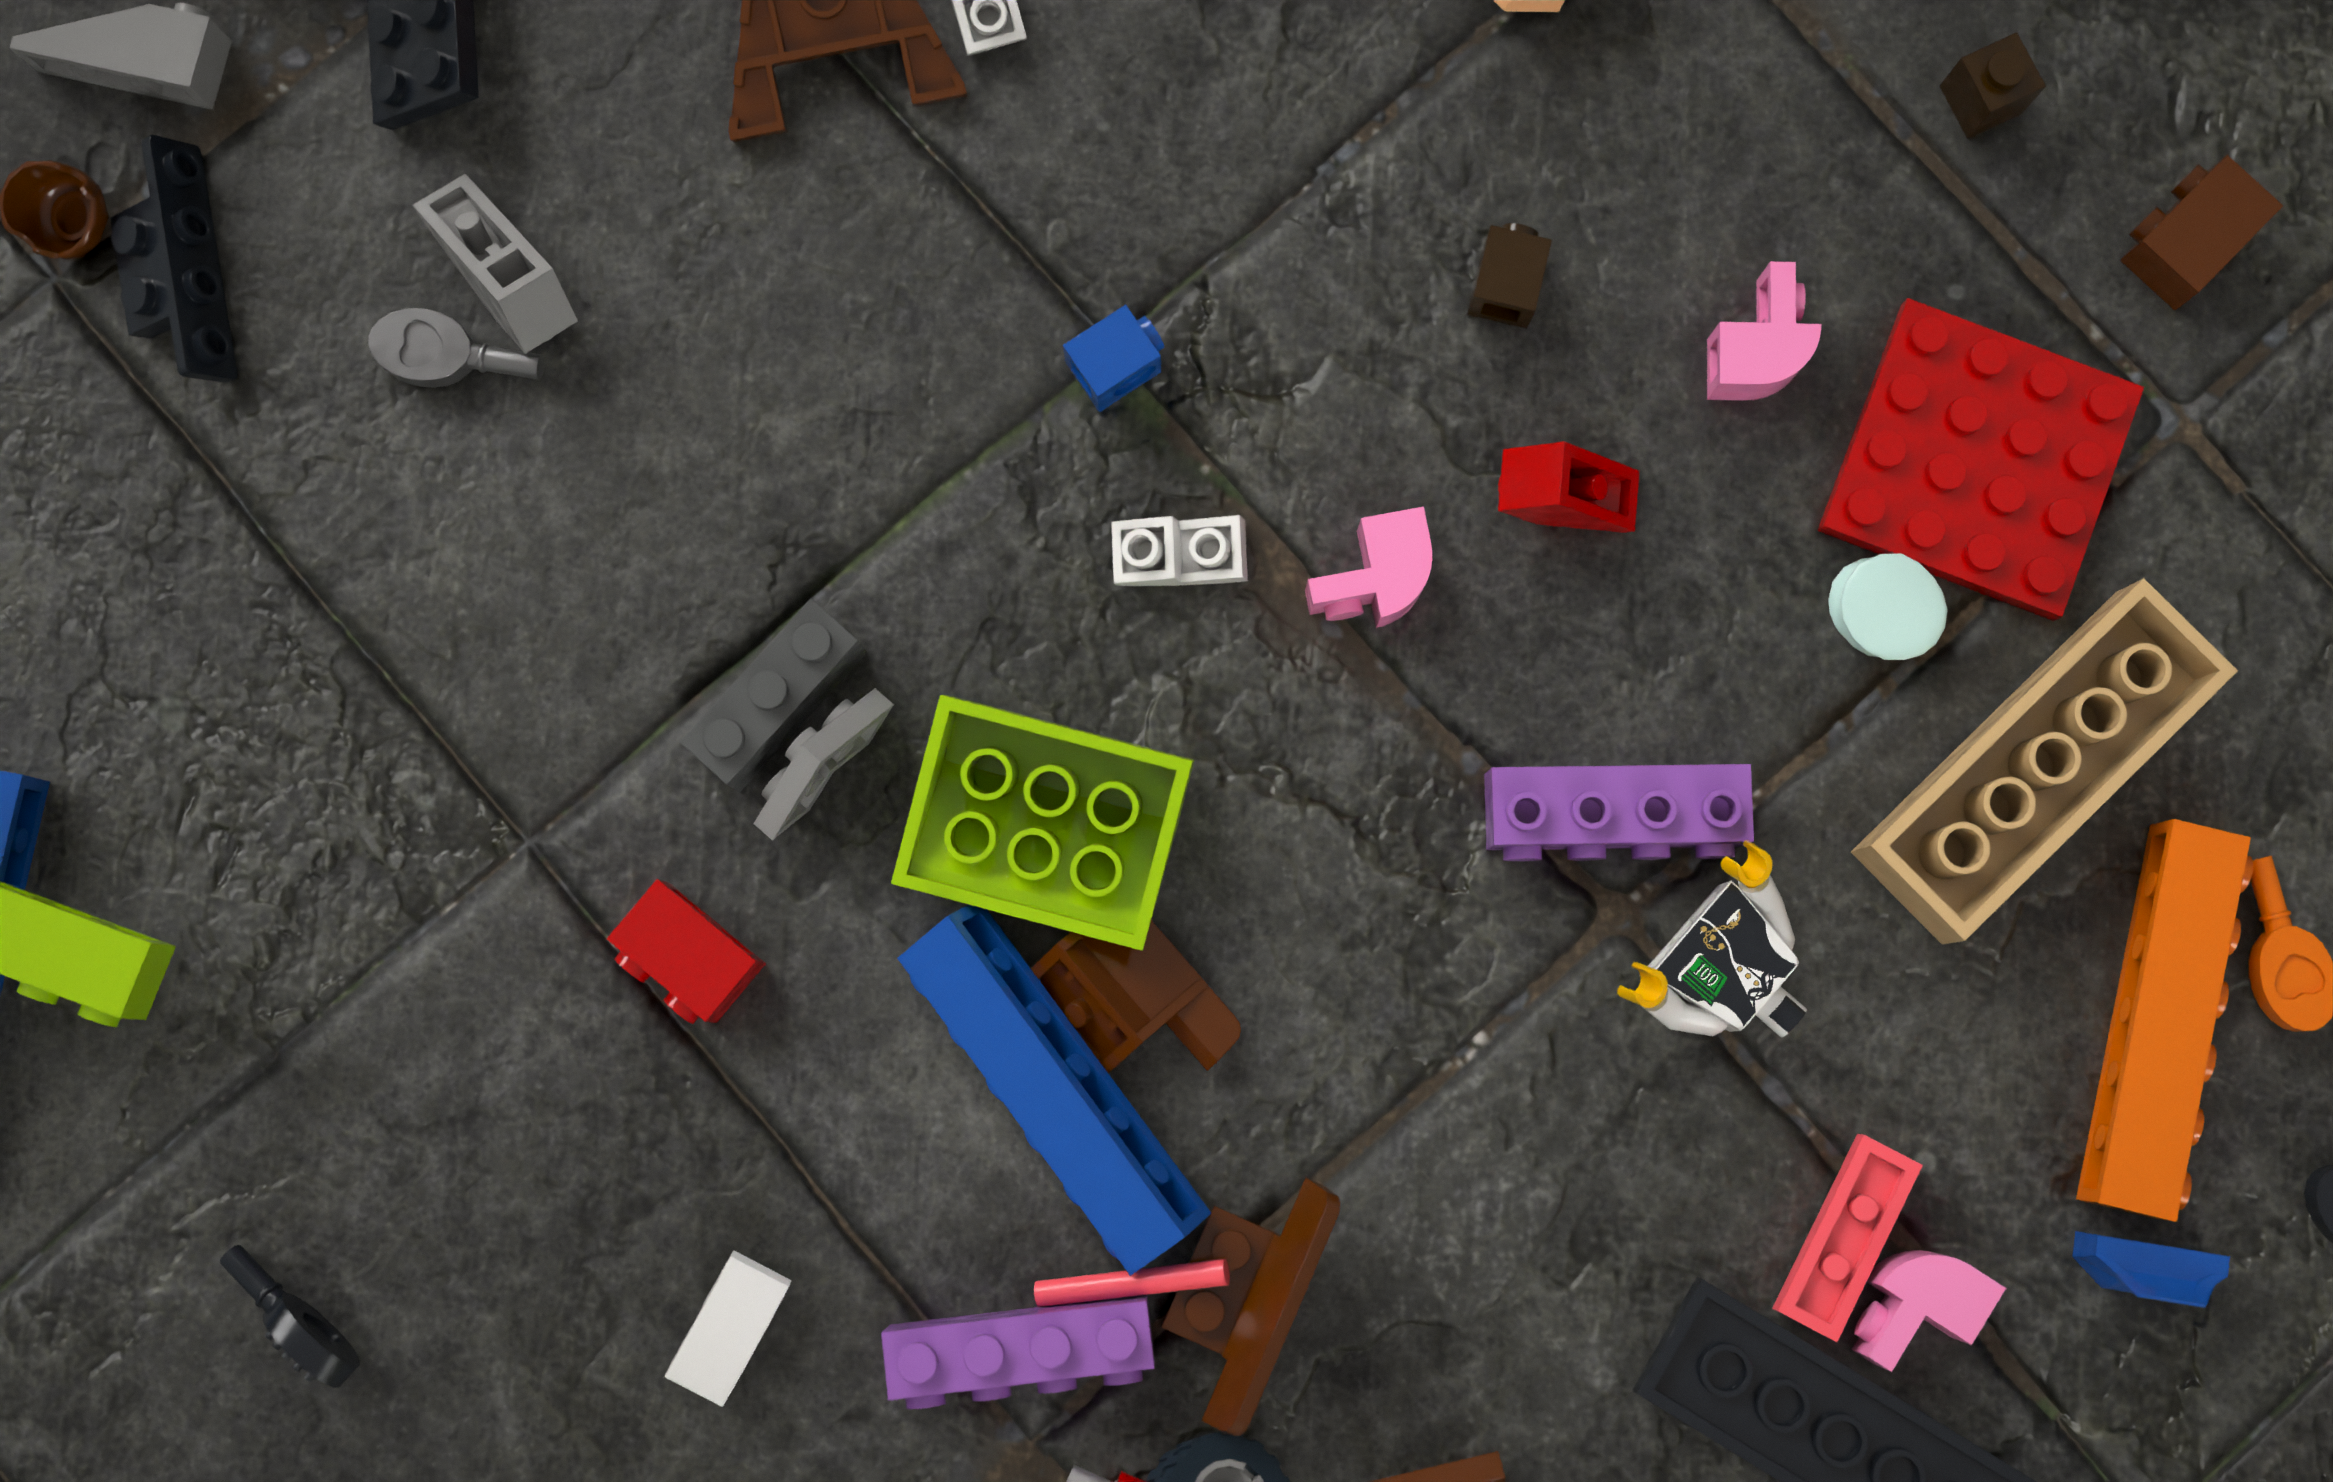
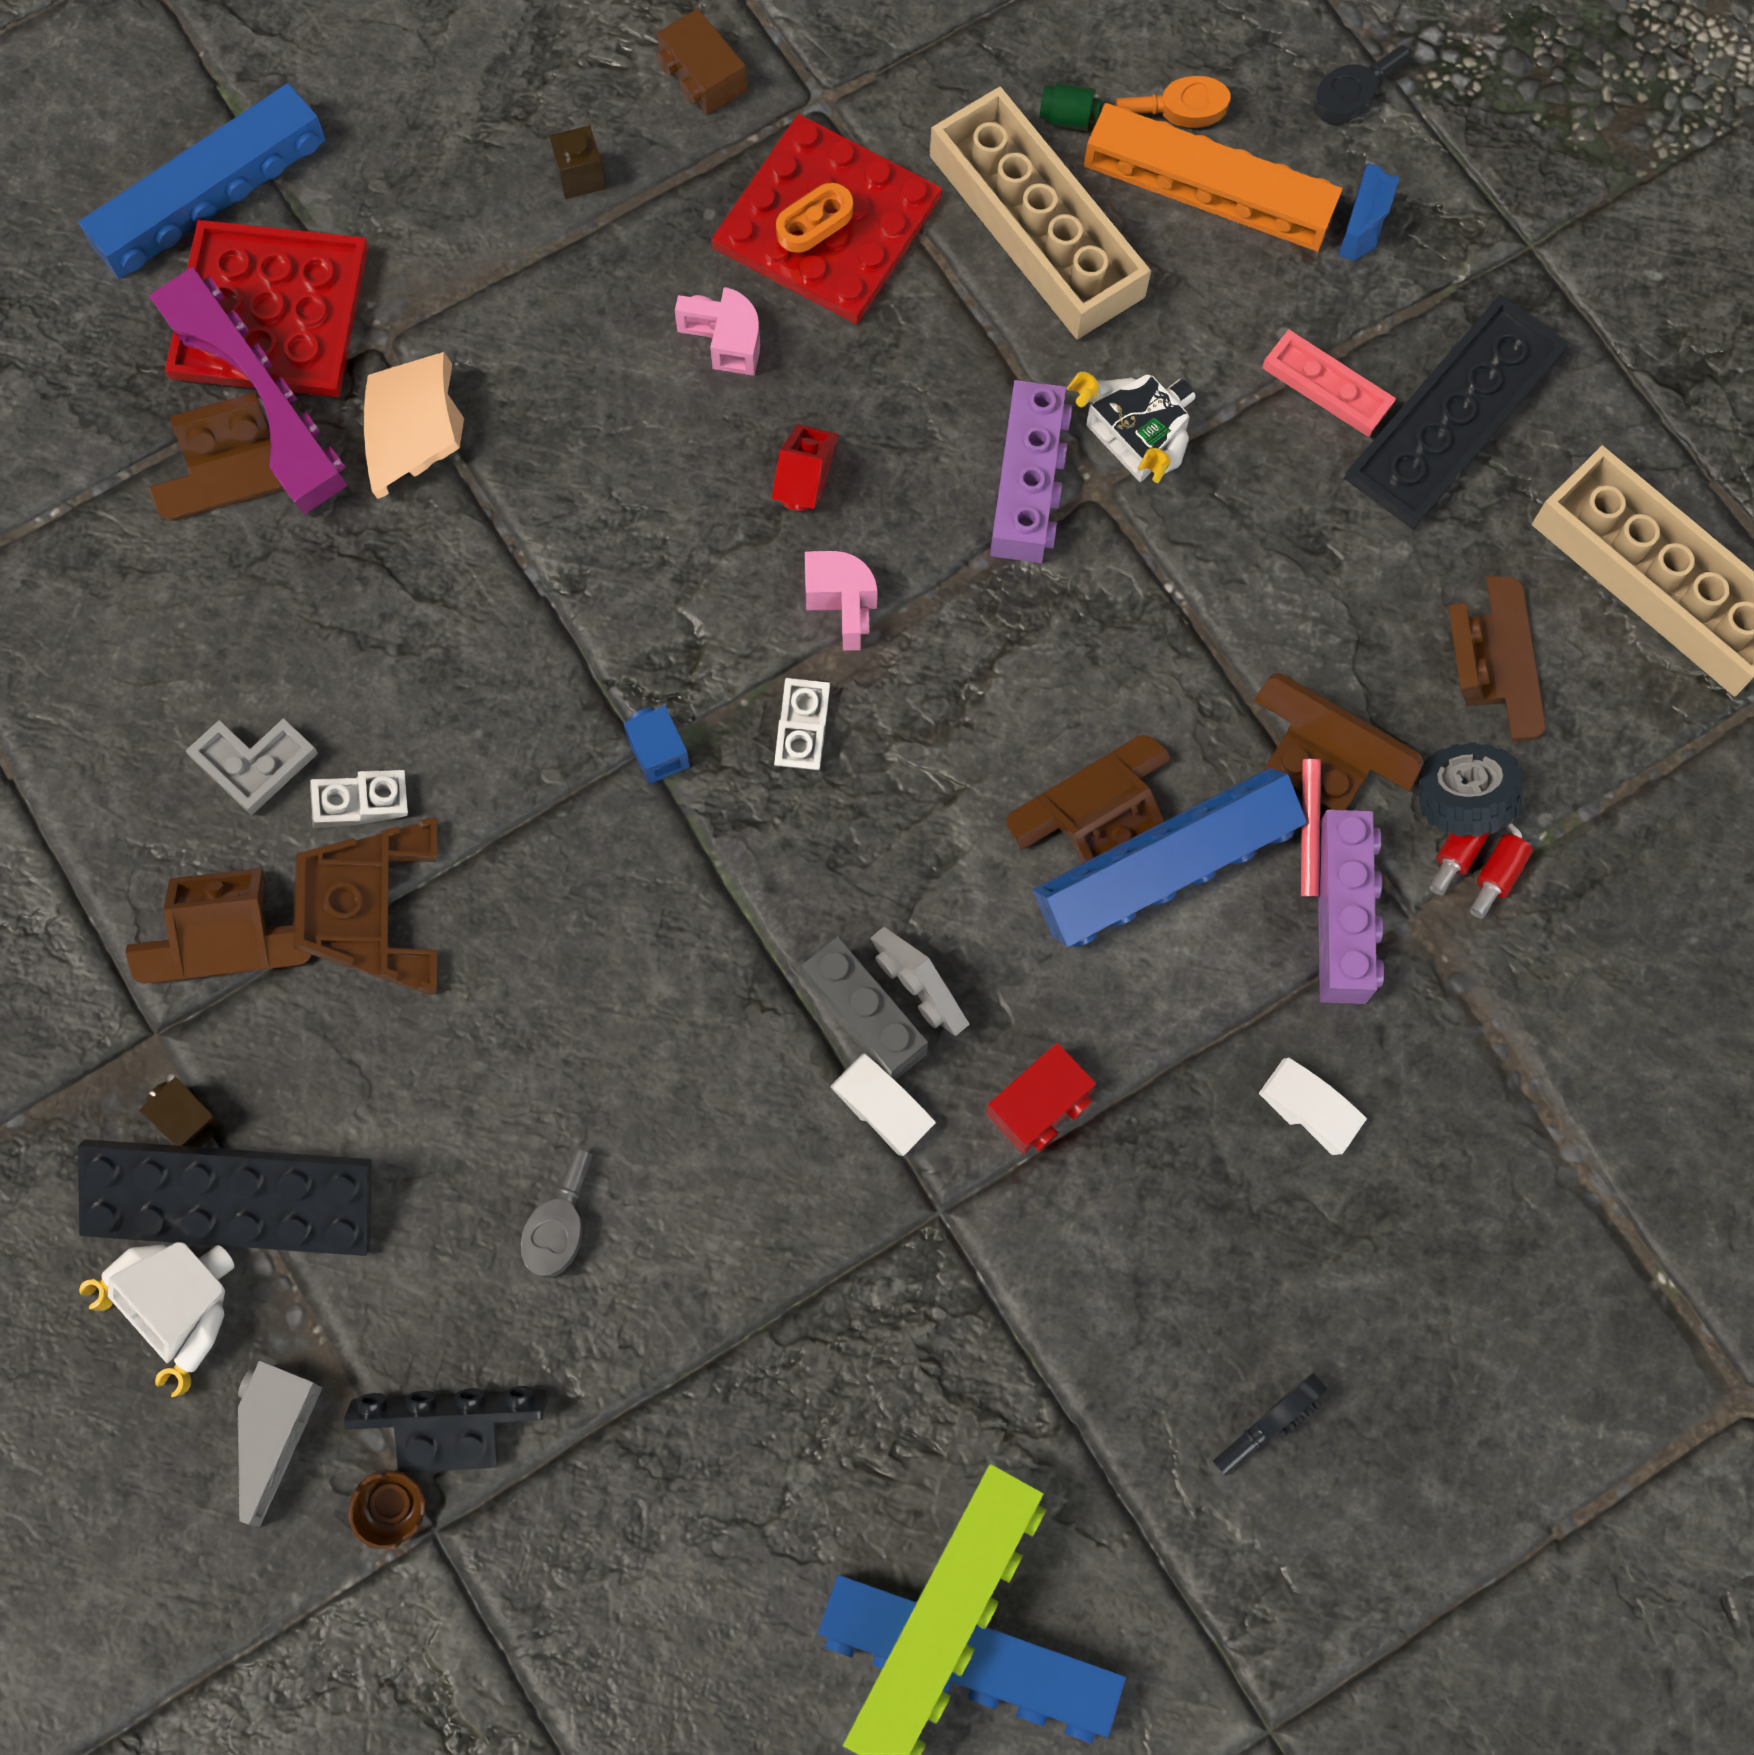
camera: 85 degrees left, 10 degrees down
(497, 263) = (496, 1171): light grey slope -> none
(649, 742) = (883, 1104): none -> white slope
(1042, 821) = (984, 834): lime slope -> none
(1510, 275) = (647, 477): dark brown brick -> none
(1888, 607) = (917, 288): light aqua piece -> none
(1922, 1288) = (1370, 345): bright pink brick -> none
(1964, 428) = (810, 217): none -> orange plate
(2242, 787) = (1070, 106): none -> dark green brick

